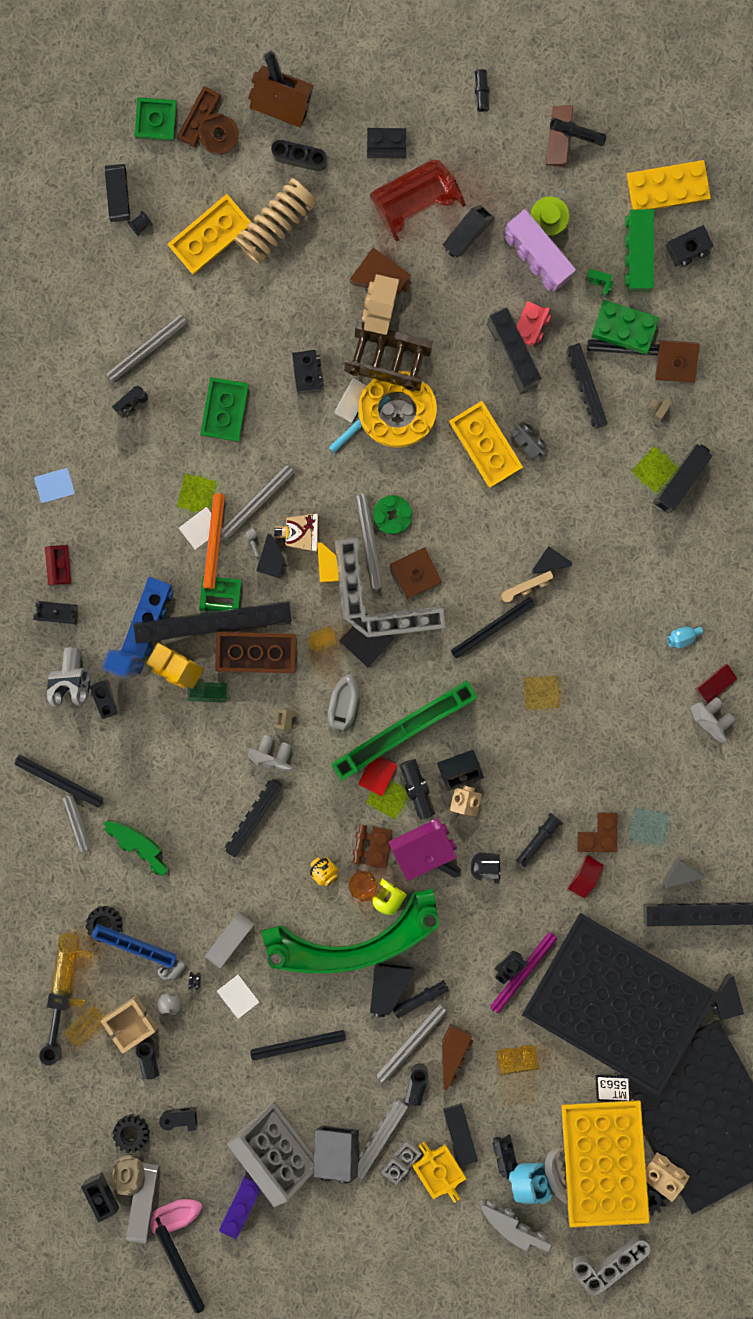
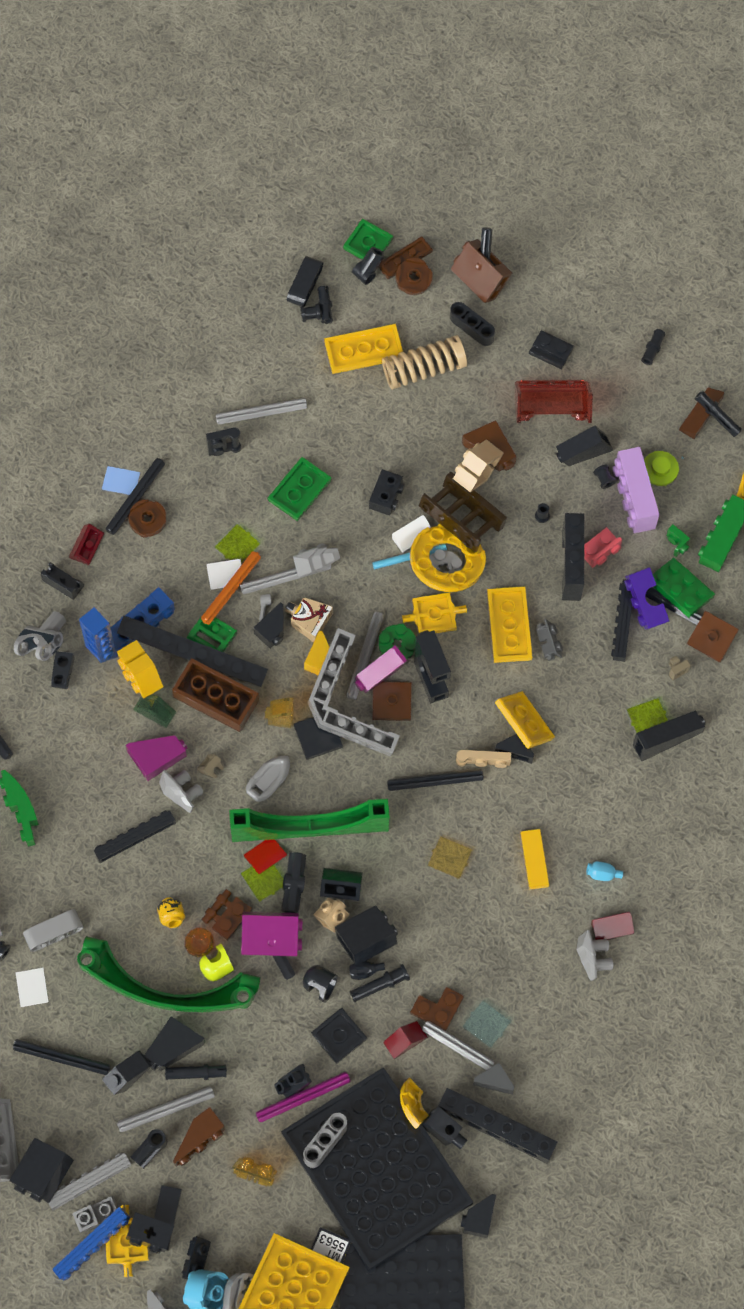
camera: 25 degrees right, 20 degrees down
(76, 494) = (135, 496): none -> black axle
(89, 514) = (148, 508): none -> reddish brown plate
(149, 207) = (325, 304): none -> black pin
(169, 148) = (366, 268): none -> black piece
(233, 734) = (156, 754): none -> magenta slope
(278, 475) = (315, 559): none -> light grey connector
(363, 1034) = (126, 1073): none -> black slope
(393, 554) = (380, 669): none -> slope
(412, 469) = (434, 613): none -> yellow plate
(412, 1191) = (91, 1244): none -> blue piece
(440, 529) = (431, 666): none -> black arch
(447, 1156) = (160, 1230): none -> black brick
(462, 323) = (542, 514): none -> black pin
(501, 250) = (604, 476): none -> black bush
(506, 805) = (366, 935): none -> black brick
(519, 834) = (365, 970): none -> black piece
(526, 903) = (339, 1035): none -> black tile
(546, 531) = (524, 719): none -> yellow tile
(567, 1017) = (327, 1130): none -> light grey beam
(588, 345) = (638, 584): none -> dark purple arch
(617, 656) = (534, 859): none -> yellow tile
(621, 933) = (411, 1102): none -> yellow tile
(634, 859) = (458, 1045): none -> light grey axle
(658, 940) = (436, 1124): none -> black torso

